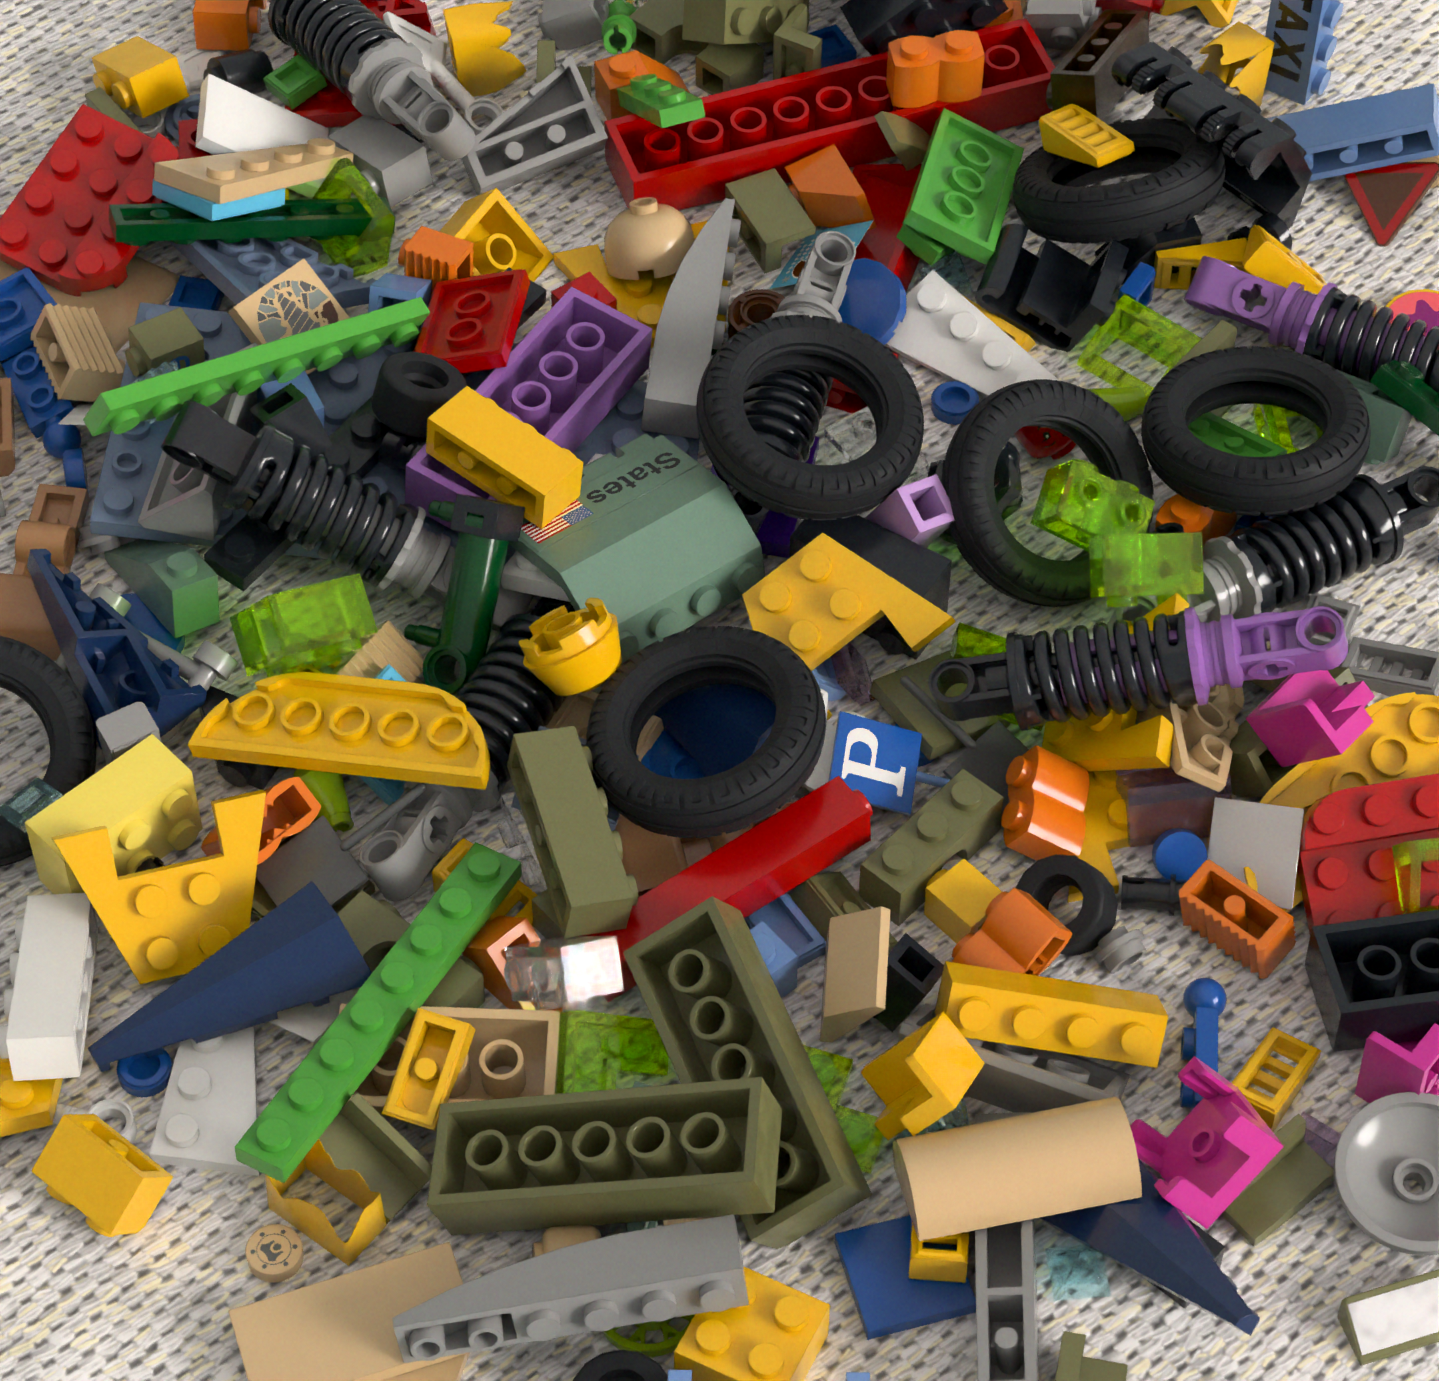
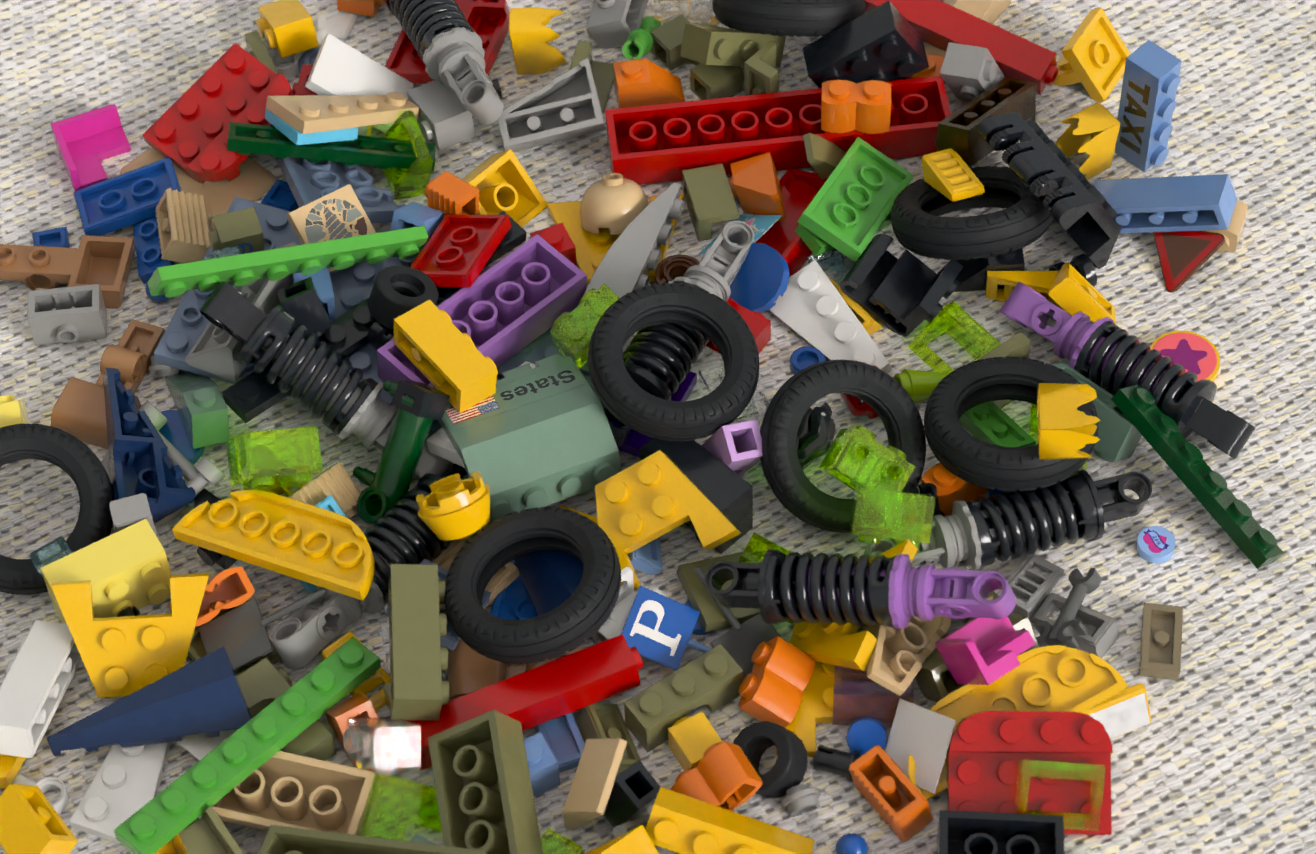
camera: 15 degrees right, 0 degrees up
(75, 468) = (161, 312): blue tile -> none
(144, 1075) = (84, 764): blue tile -> none
(241, 69) = (361, 33): black brick -> none
(294, 82) = (395, 46): bright green tile -> none
(331, 794) = (266, 586): lime cone -> none
(428, 1068) = (270, 797): yellow slope -> none
(434, 61) = (495, 43): white piece -> none
(660, 101) = (646, 101): bright green plate -> none
(669, 400) = (574, 330): none -> clear neon green brick
(835, 46) = (794, 75): blue tile -> none
(853, 674) = (667, 555): tile -> none
(1140, 284) = (969, 296): blue tile -> none
(1335, 415) = (1059, 423): none -> yellow piece
(1389, 676) = (1065, 626): none -> dark grey bar

